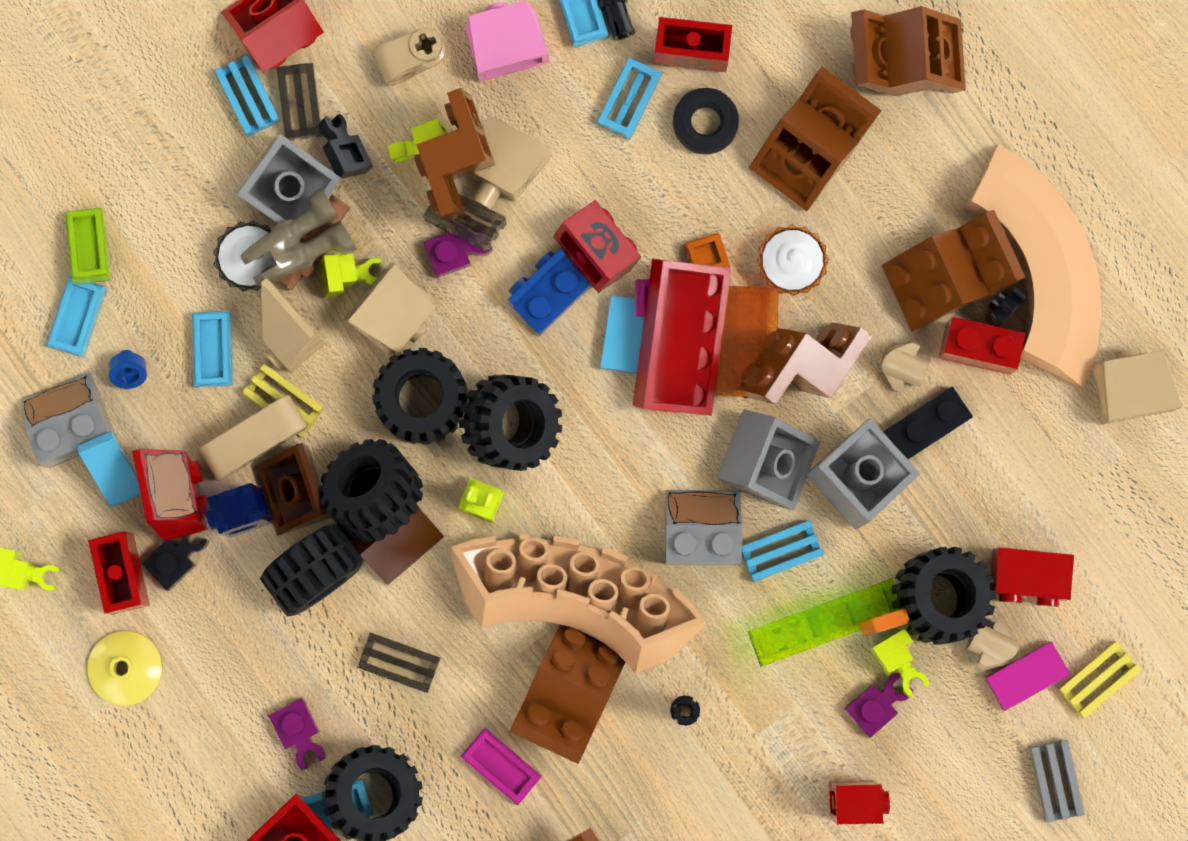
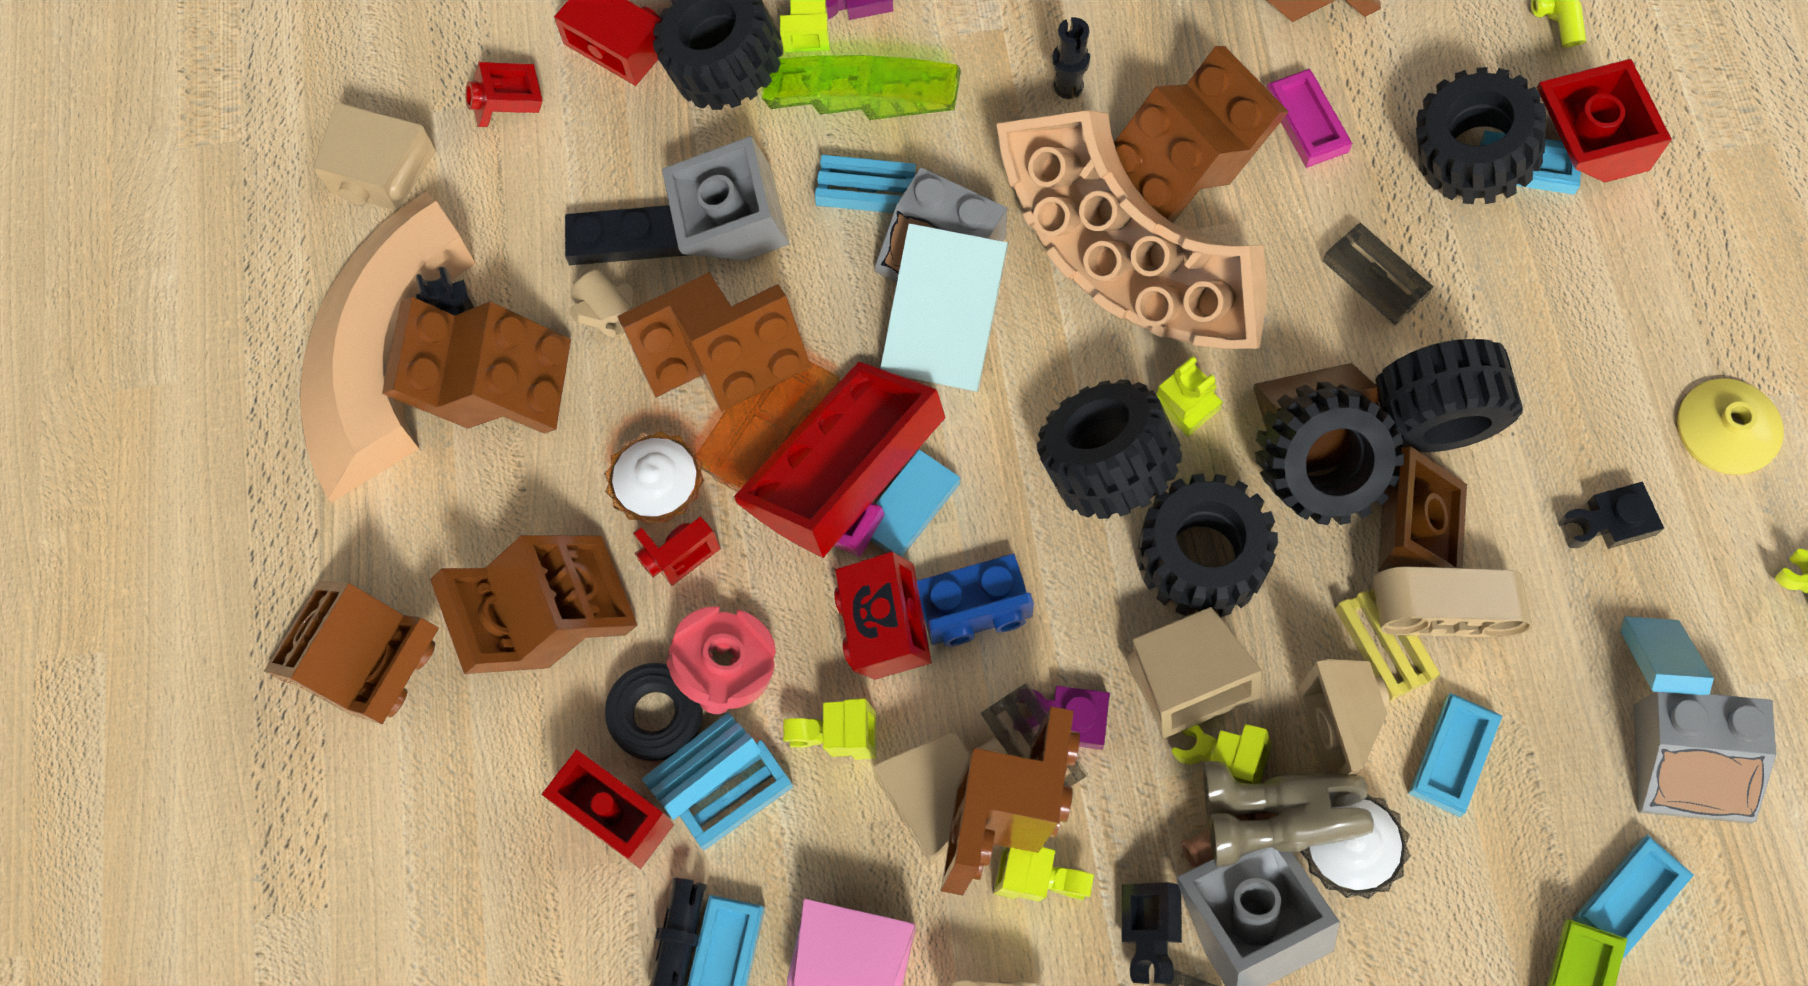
camera: 150 degrees left, 15 degrees down
(118, 573) = (1704, 521): red brick -> none
(127, 370) = (1588, 782): blue tile -> none
(171, 492) = (1597, 579): slope -> none
(238, 511) = (1513, 514): clear blue brick -> none
(295, 727) = (1535, 262): magenta plate -> none
(582, 168) = (845, 730): none -> neon yellow piece
(661, 105) = (701, 765): none -> medium azure tile
(671, 473) = (944, 307): none -> light aqua tile
(691, 188) = (716, 685): none -> coral plate
(707, 251) = (752, 548): orange tile -> none
(747, 228) = (680, 554): none -> red bracket
(768, 459) = (827, 277): light grey slope -> none
(884, 622) = (798, 41): orange tile -> none
(982, 345) = (502, 273): red brick -> none
(1078, 487) = (502, 89): none -> red bracket

